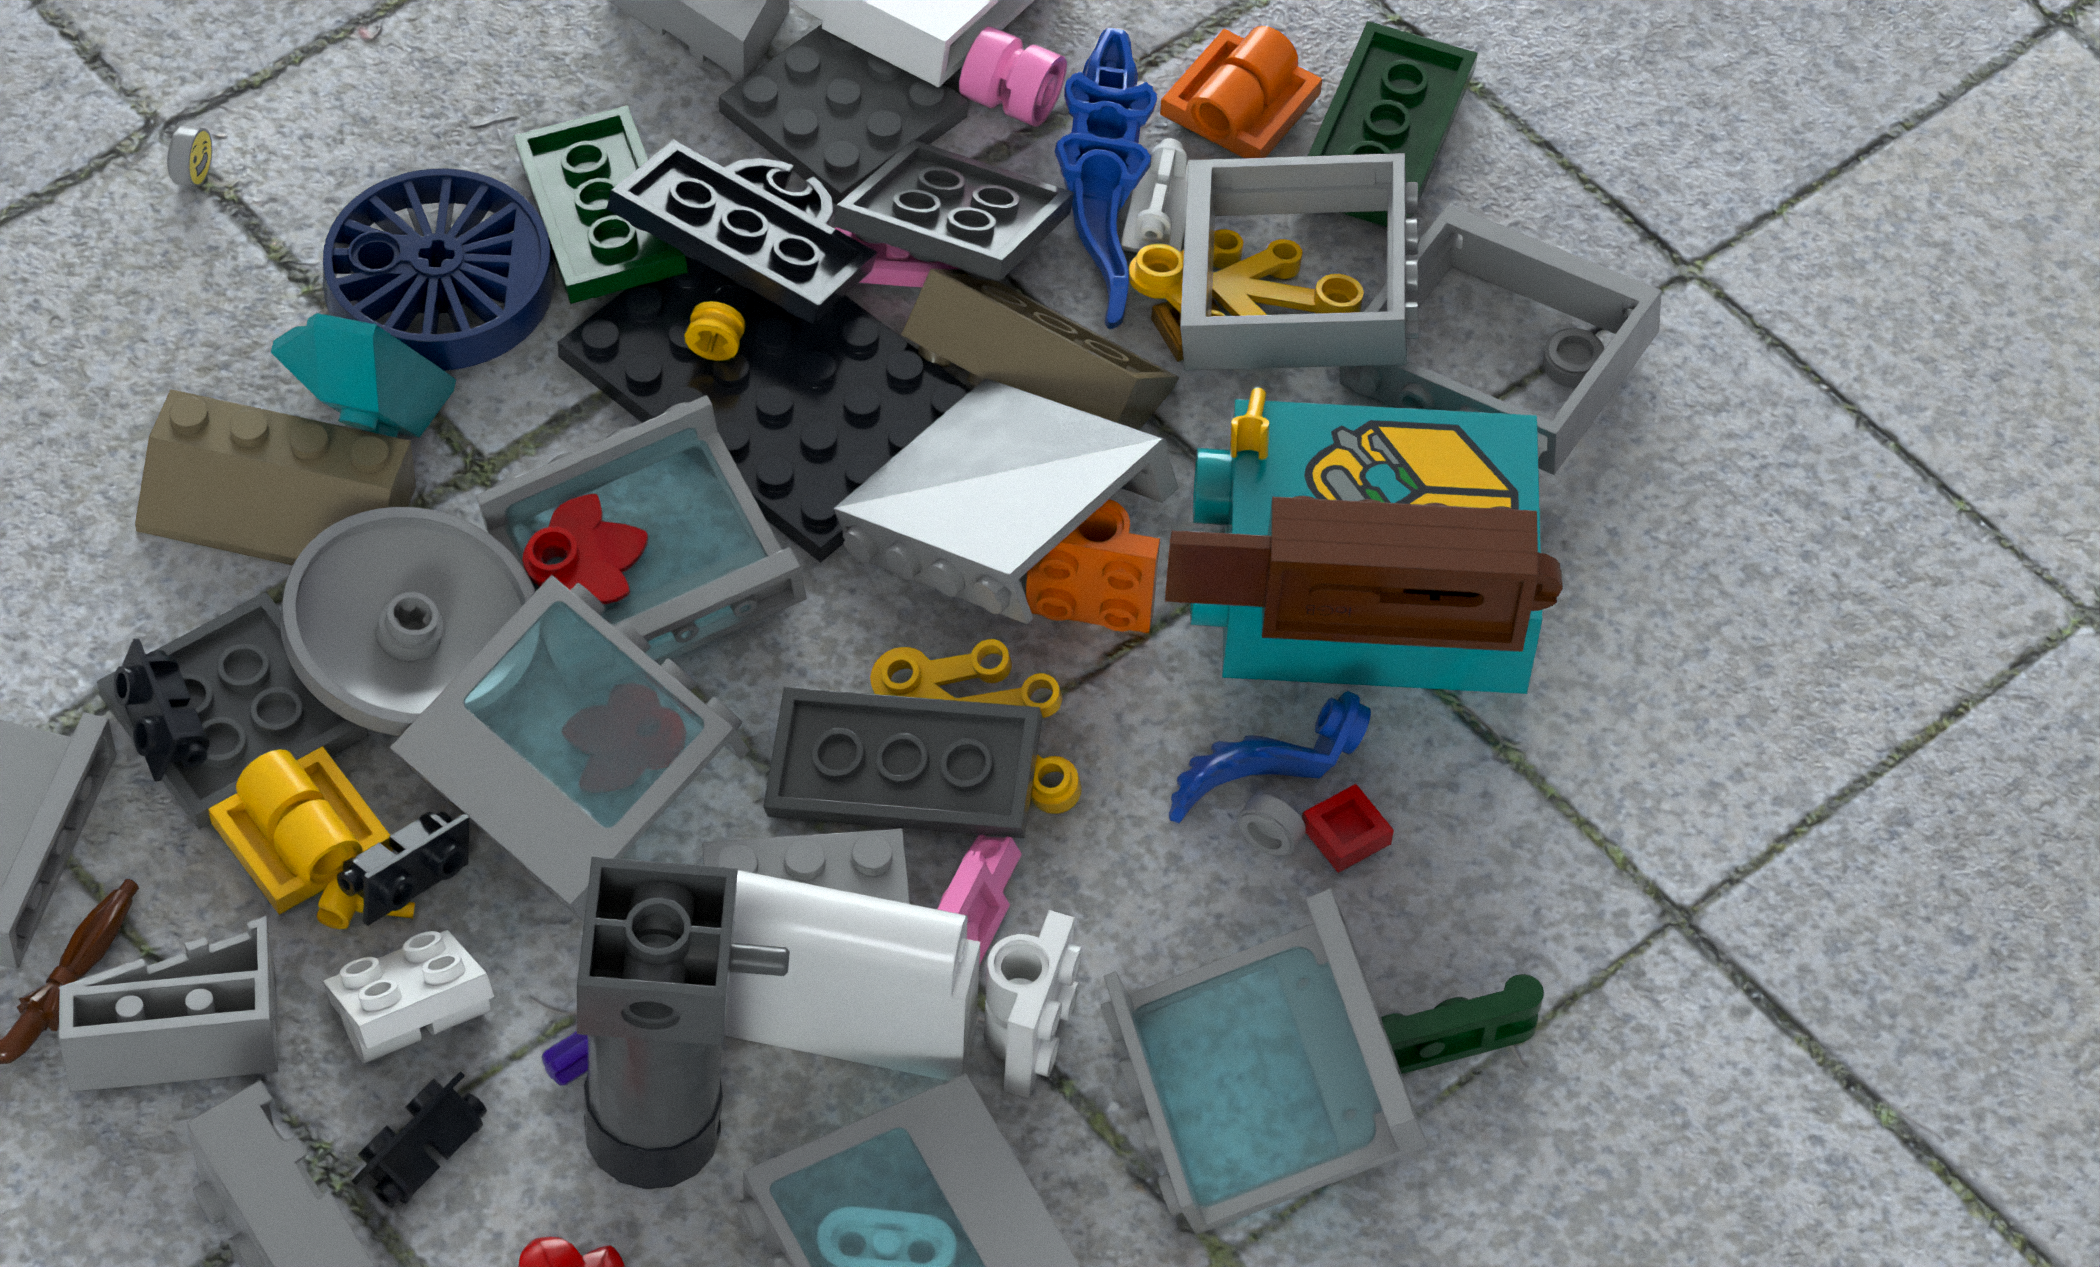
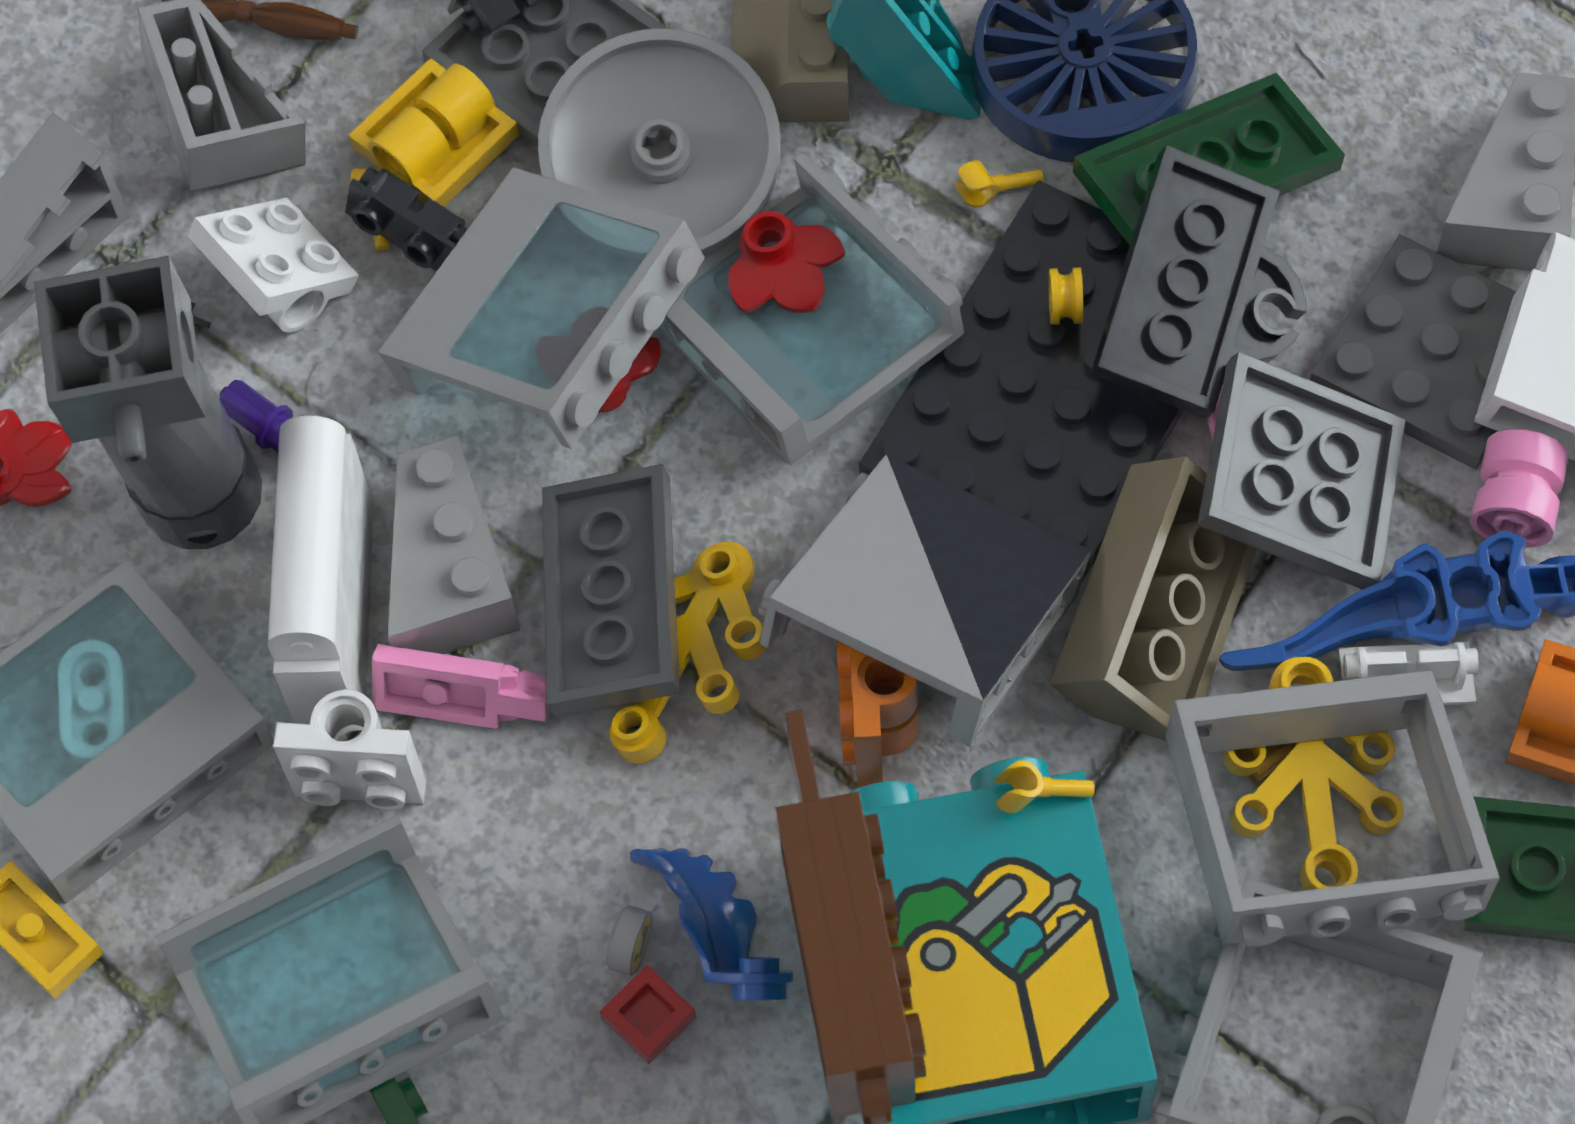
camera: 85 degrees right, 10 degrees up
(539, 391) = (980, 187): none -> yellow hand

